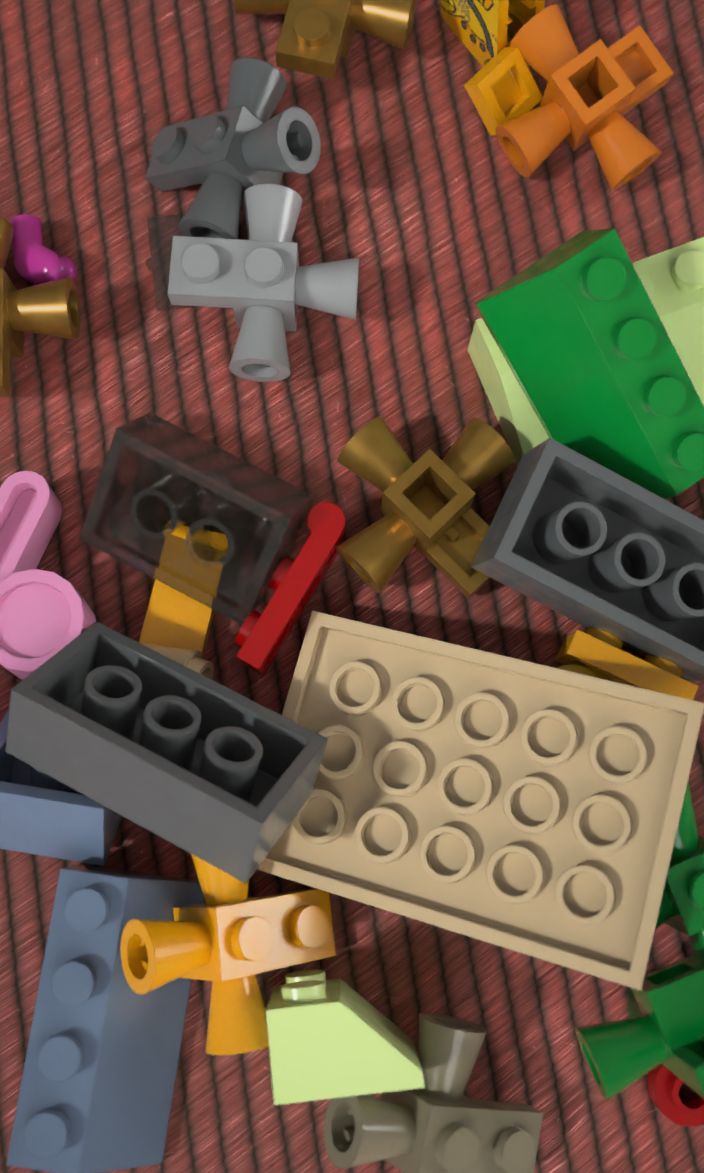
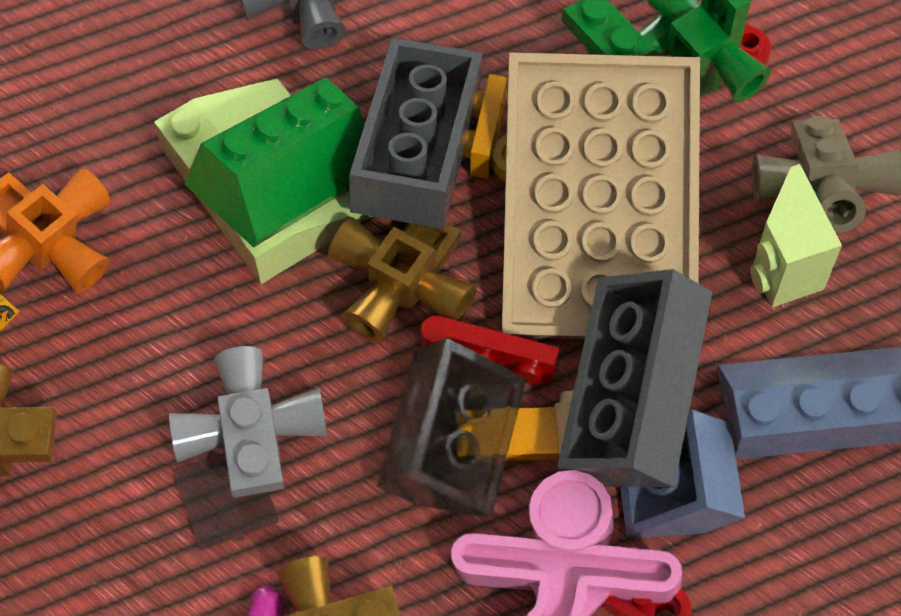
camera: 100 degrees left, 15 degrees down
(228, 944) = (754, 325): light orange brick -> none
(234, 149) = (141, 475): dark grey brick -> none
(503, 89) = (38, 293): light orange plate -> none

